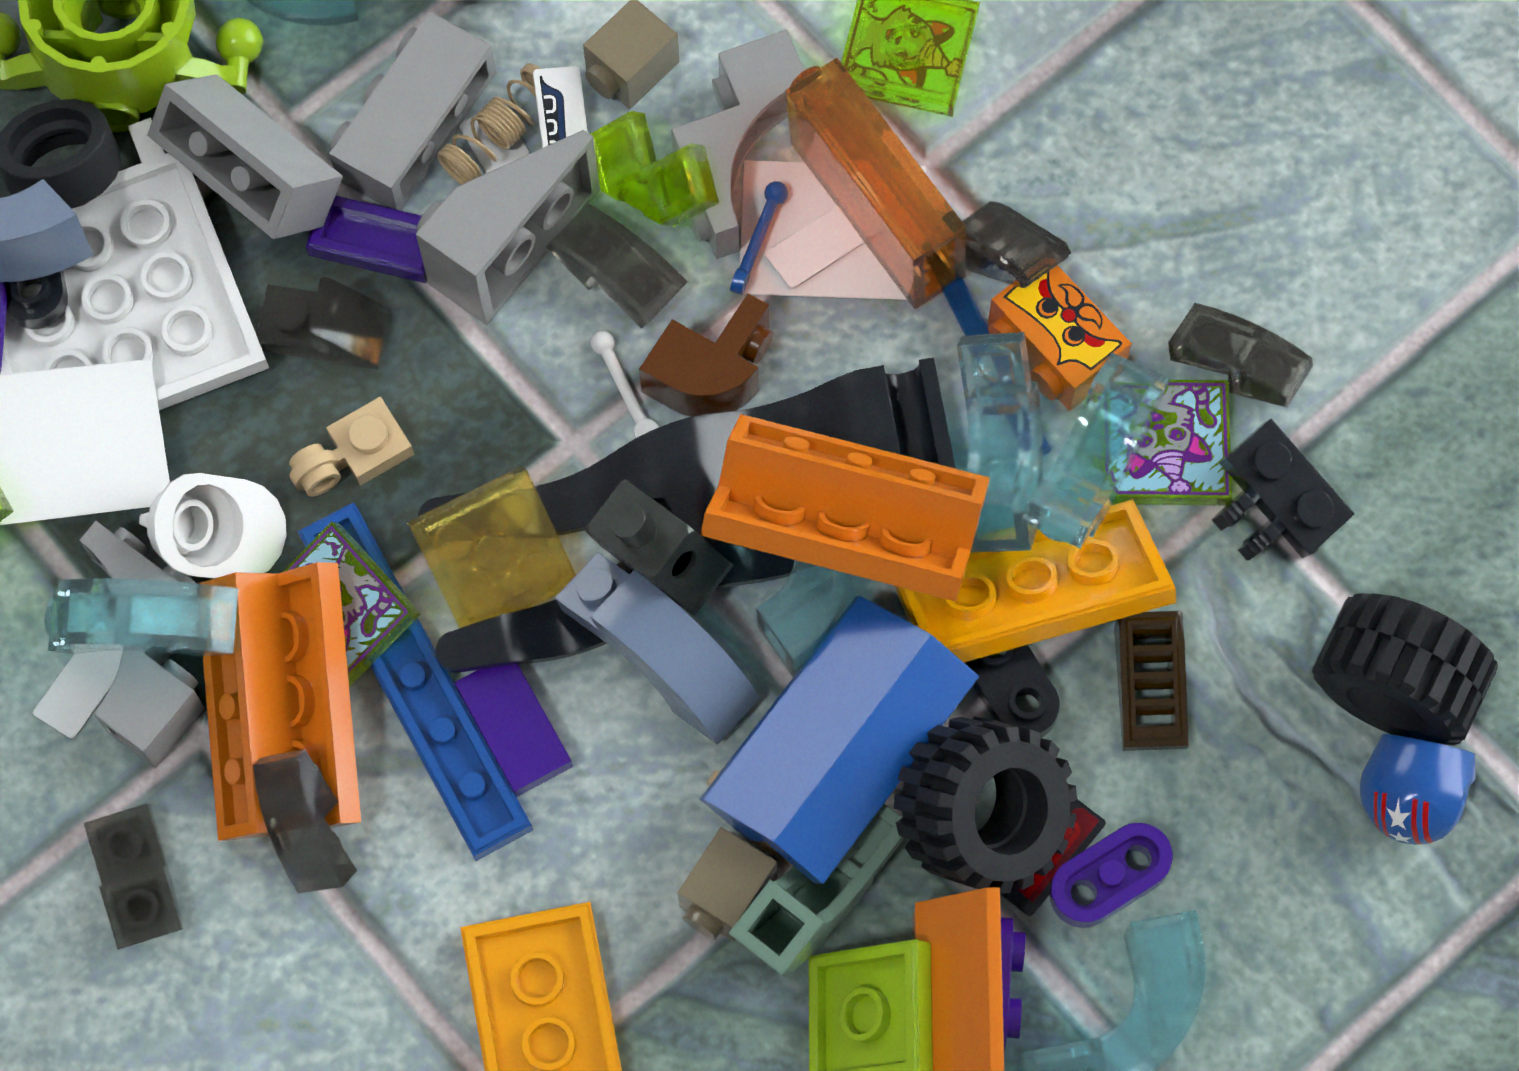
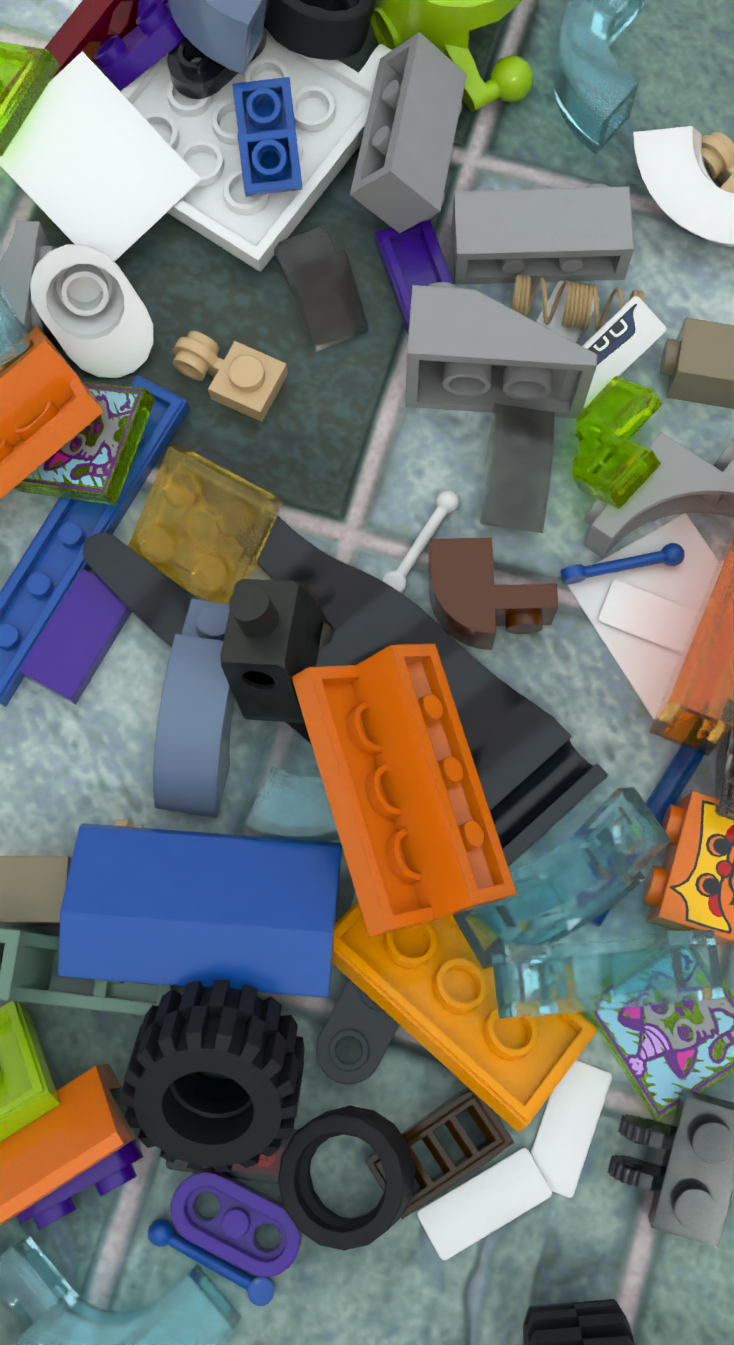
camera: 60 degrees right, 5 degrees up
(154, 278) = (267, 136): none -> blue slope
(1171, 735) = (304, 1204): none -> black tyre
(1174, 895) = (259, 1289): none -> blue hinge
(1198, 577) = (570, 1126): none -> white sticker
(1215, 676) = (484, 1204): none -> white sticker

